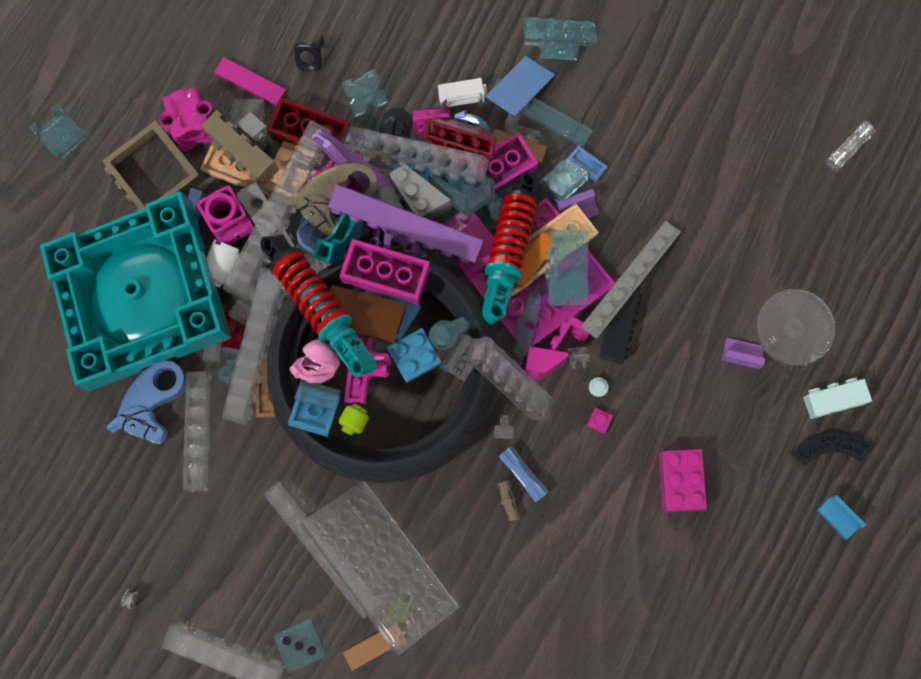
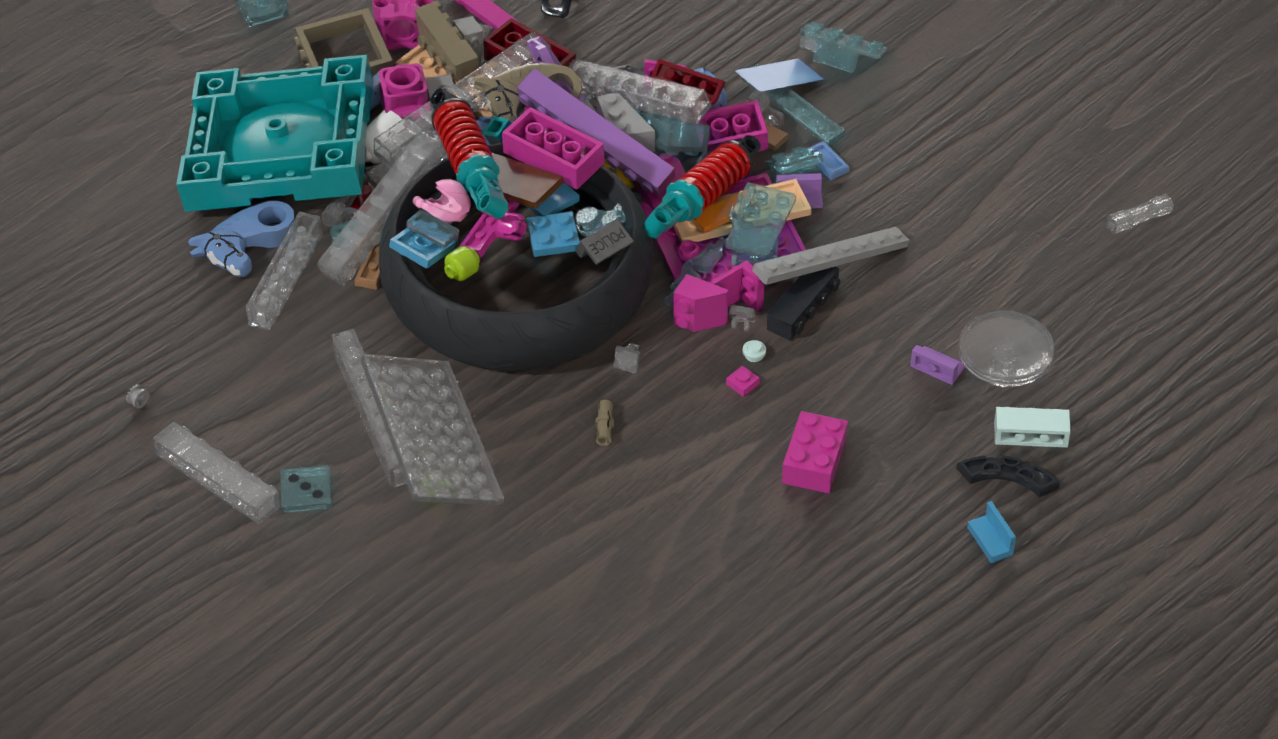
camera: 15 degrees right, 30 degrees down
(364, 92) = (611, 30): clear light blue plant -> none
(366, 651) = (388, 512): medium nougat tile -> none
(461, 92) = (720, 65): white window -> none
(510, 378) = (651, 287): clear brick -> none
(524, 474) = (627, 390): medium blue axle -> none

